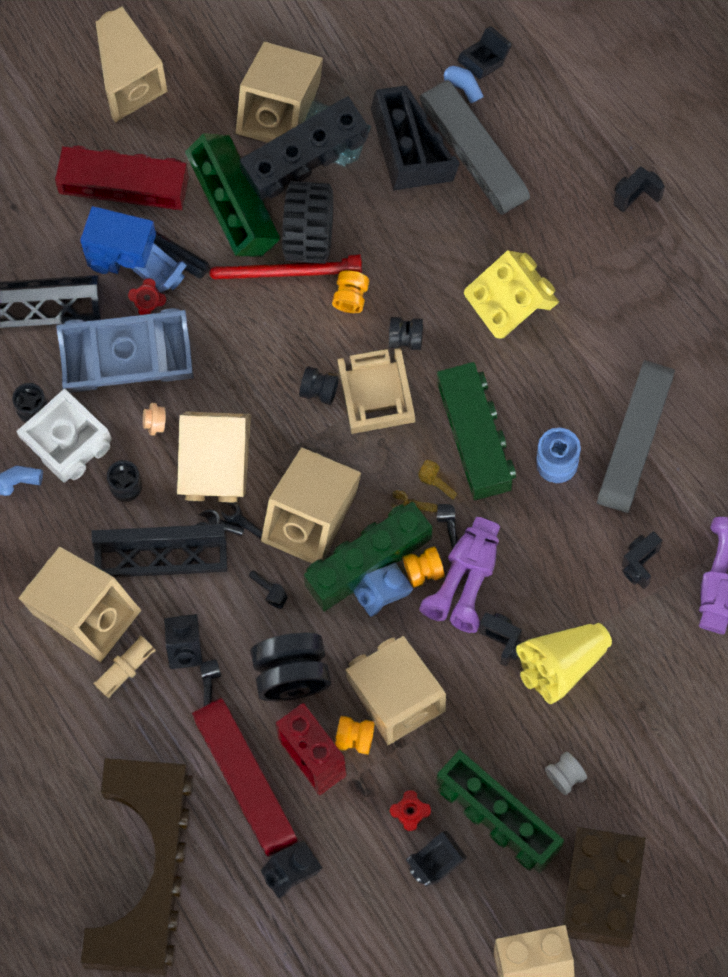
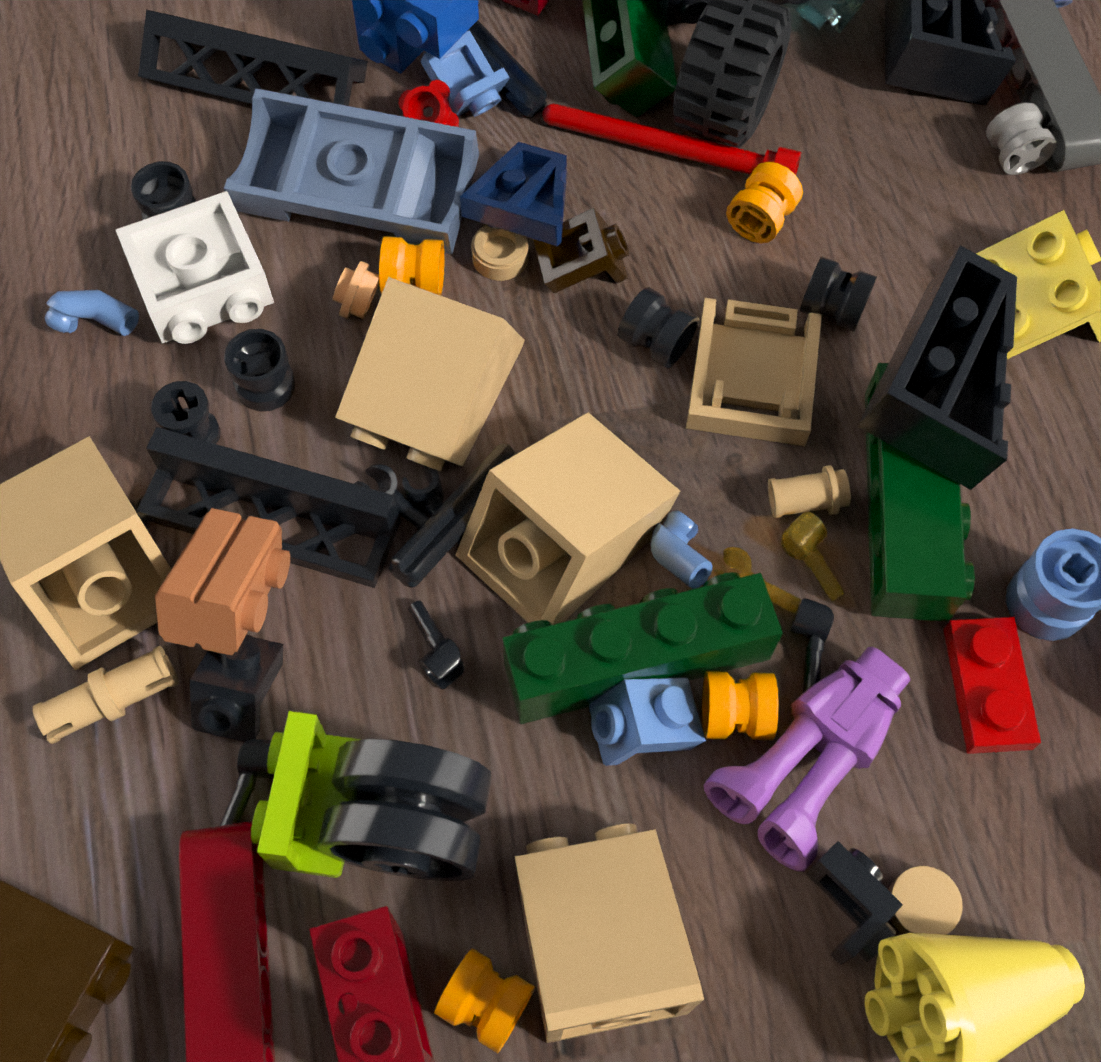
camera: 15 degrees right, 5 degrees down
(102, 511) = (194, 419): none -> black bush
(159, 594) = (222, 582): none -> nougat brick
(178, 395) = (413, 264): none -> light orange wheel
(218, 367) = (499, 253): none -> tan tile
(220, 333) = (521, 194): none -> dark blue wing
(242, 677) = (300, 793): none -> lime bracket
(255, 522) = (445, 526): none -> black axle
(263, 355) = (585, 250): none -> dark brown bracket
(367, 503) = (673, 553): none -> medium blue arm
(424, 448) = (809, 492): none -> tan pin
(469, 370) = (948, 374): none -> black wedge
(476, 203) = (1020, 138): none -> light grey wheel
(534, 624) = (929, 901): none -> tan tile
(539, 514) = (991, 685): none -> red plate

